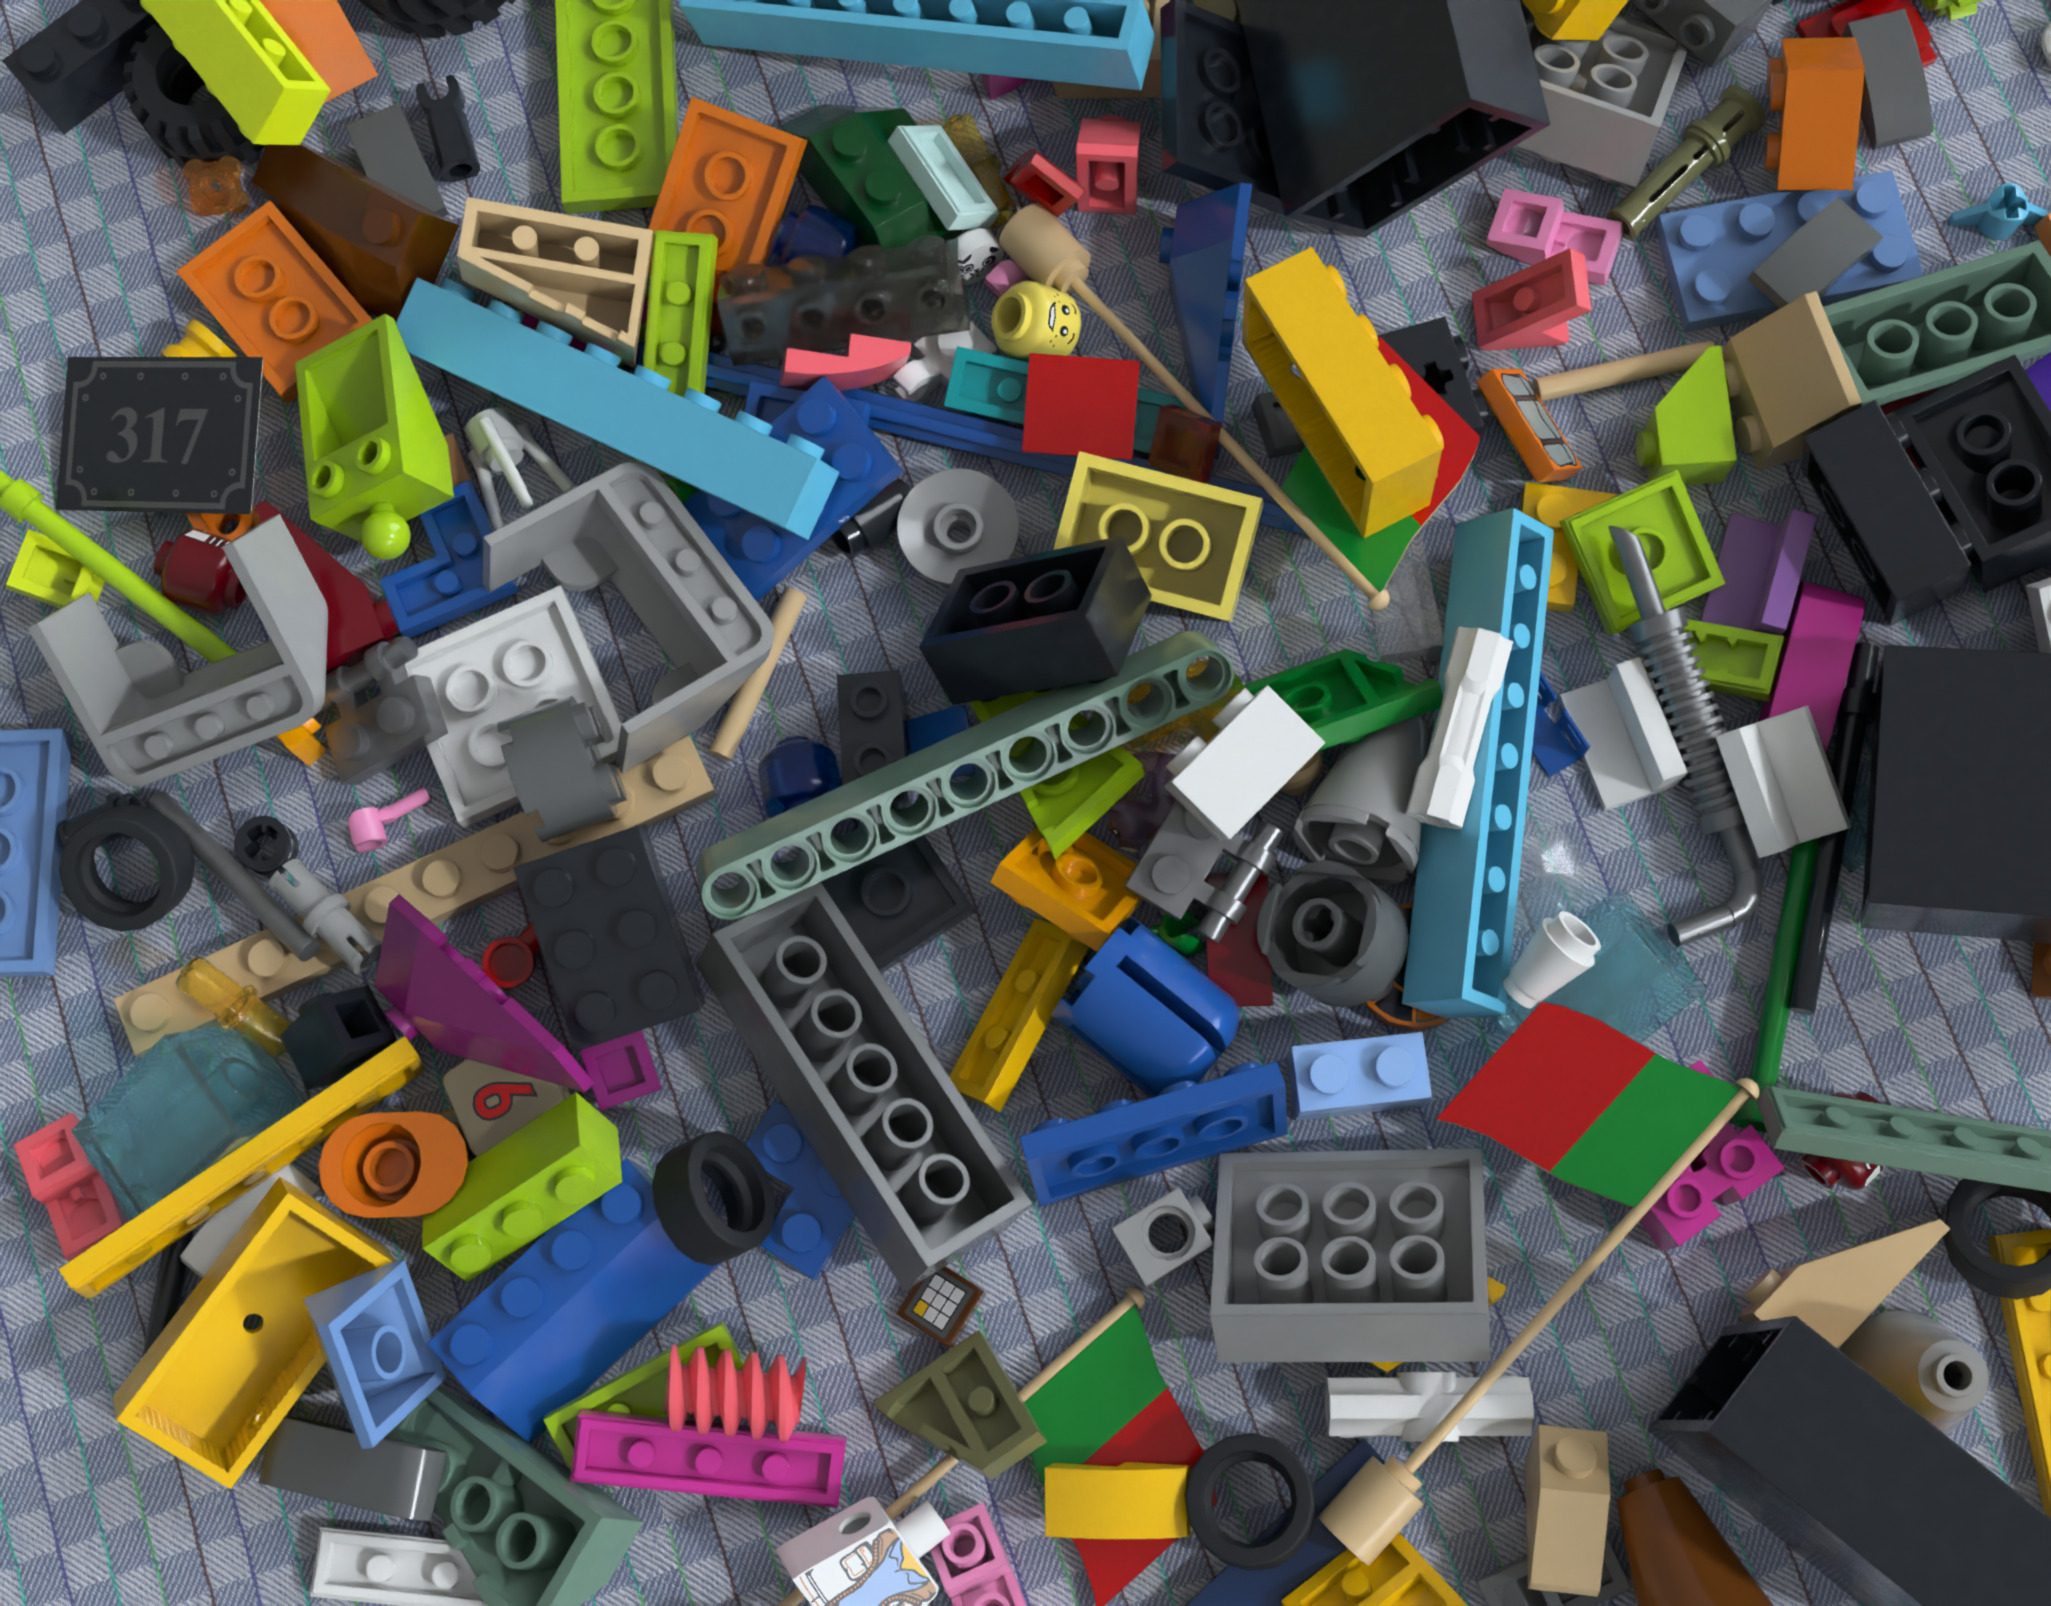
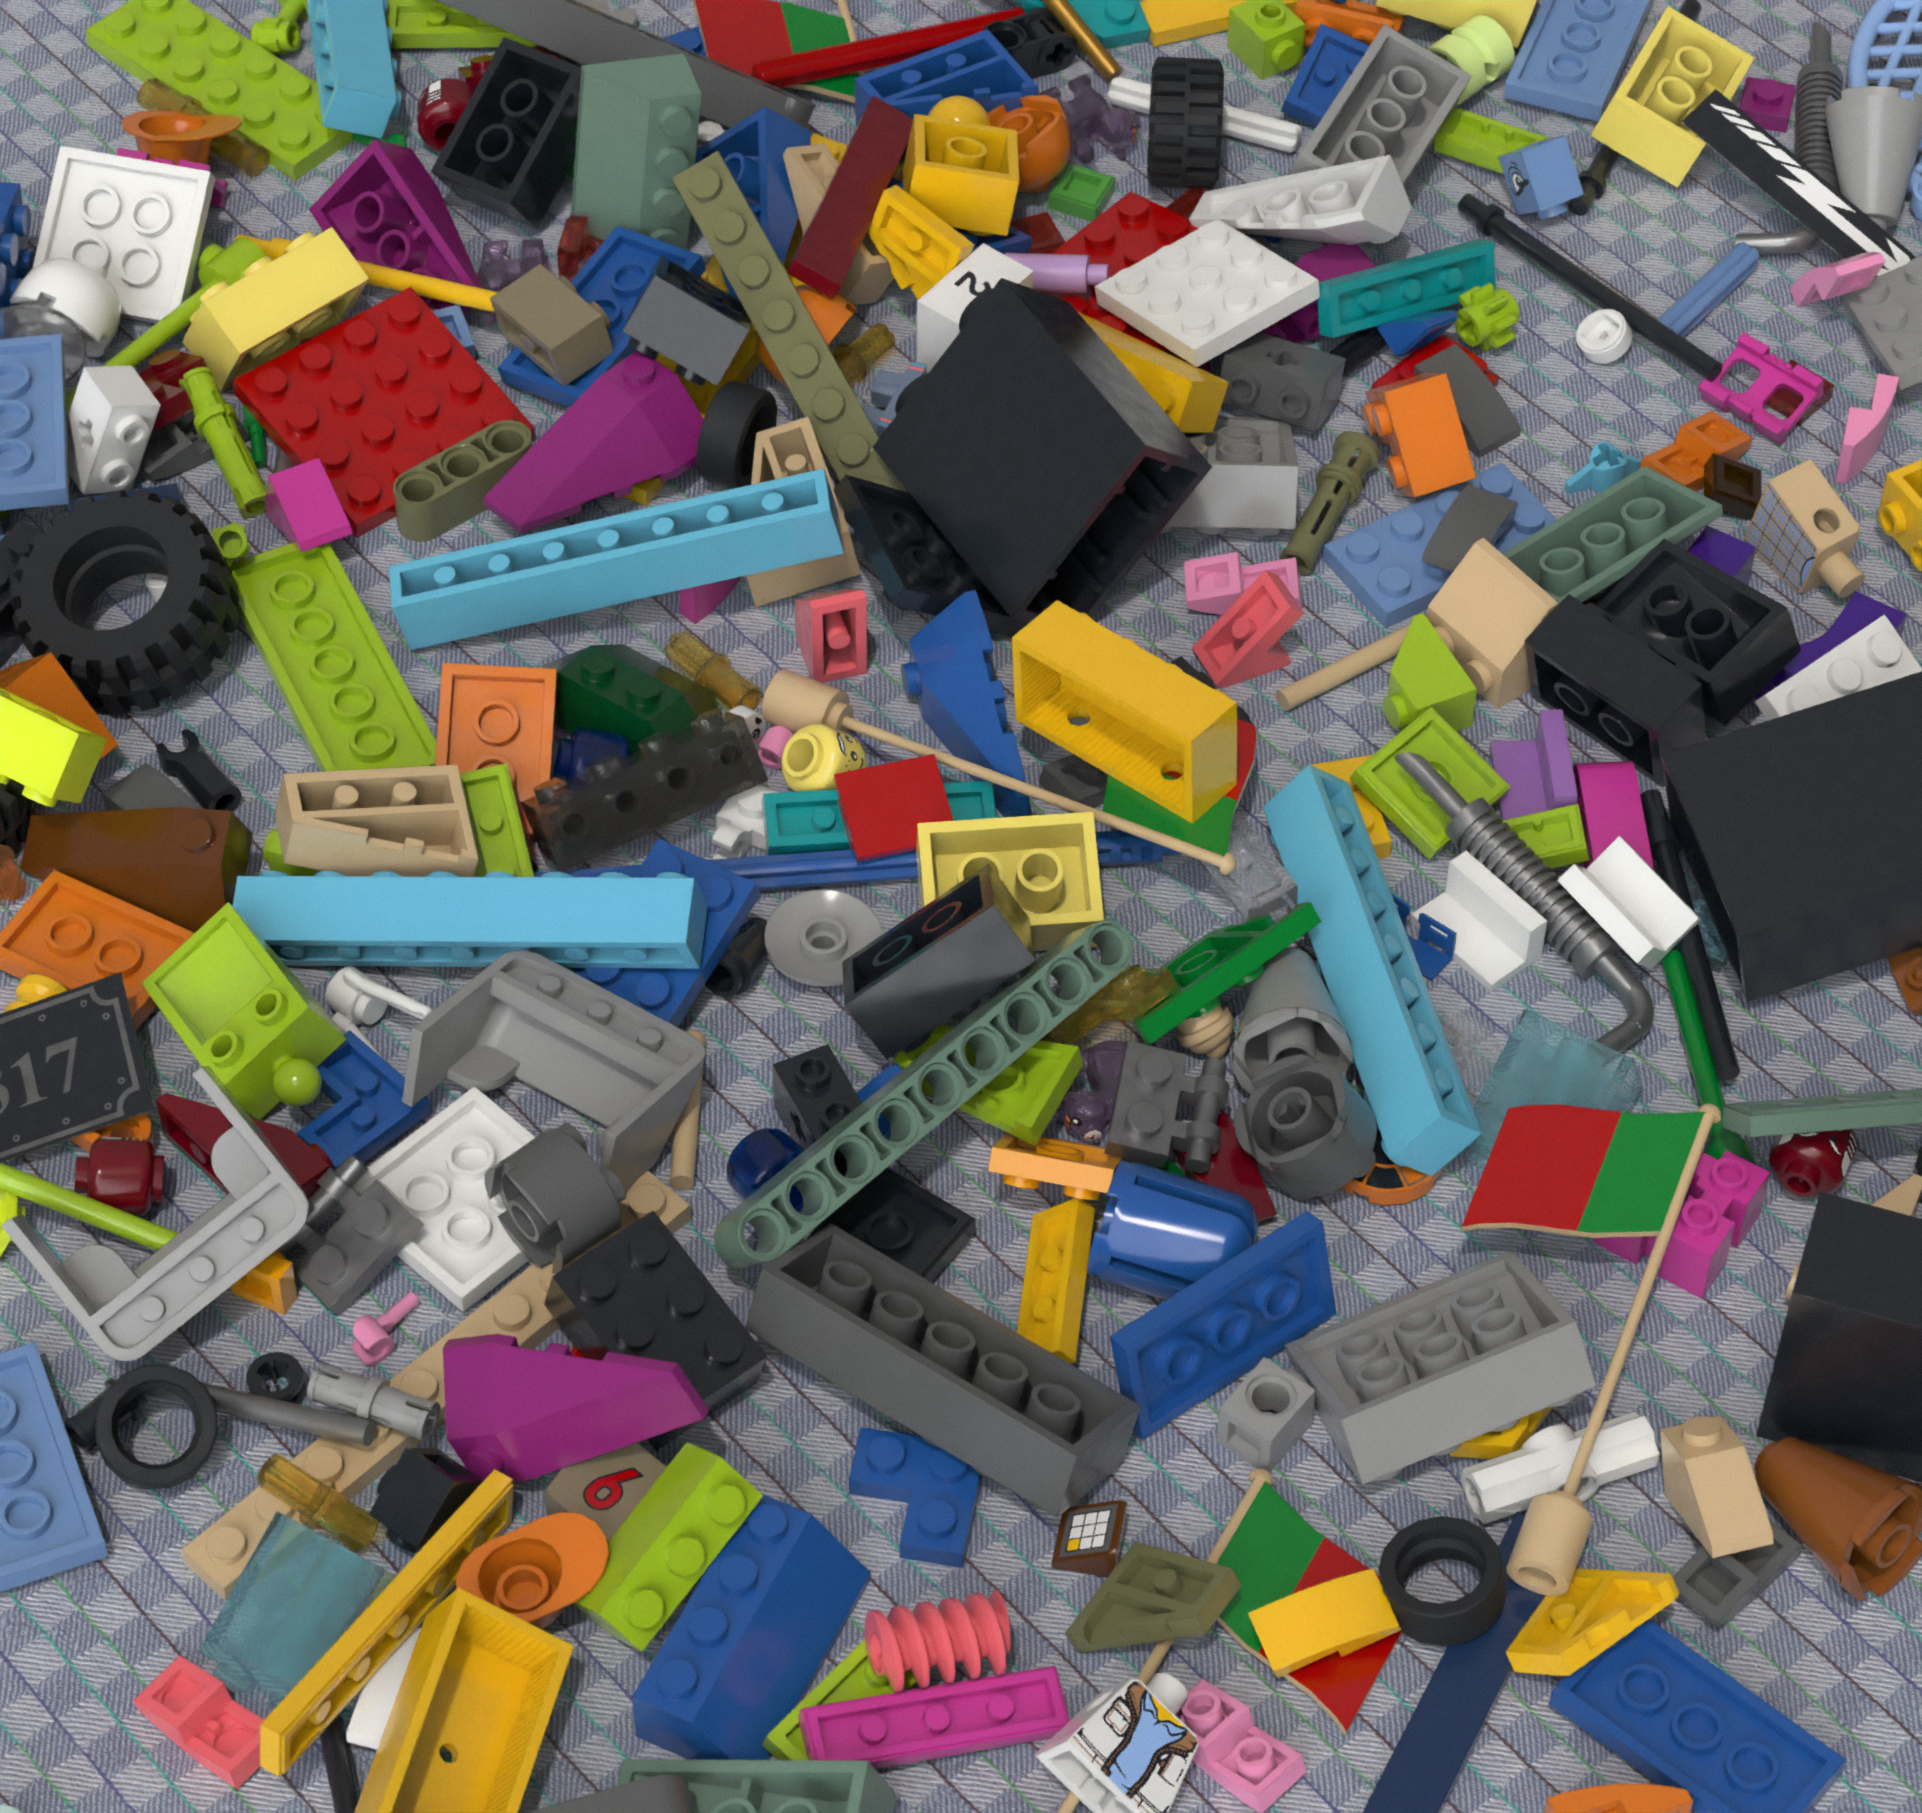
camera: 30 degrees left, 25 degrees down
(376, 1348) = (577, 1717): medium blue slope -> none
(621, 1069) = (712, 1434): magenta plate -> none
(686, 1211) = (847, 1501): black tyre -> none
(864, 363) = (685, 824): coral slope -> none
(943, 177) = (689, 675): light aqua tile -> none
(1043, 182) = (783, 645): red slope -> none
(1184, 443) = (1000, 798): clear red tile -> none
(1243, 763) = (1171, 986): white brick -> none
(1358, 1076) = (1384, 1235): light blue brick -> none
(1447, 773) = (1347, 964): white axle -> none
(1528, 425) = (1289, 723): orange tile -> none
(1552, 958) = (1501, 1069): white cone -> none

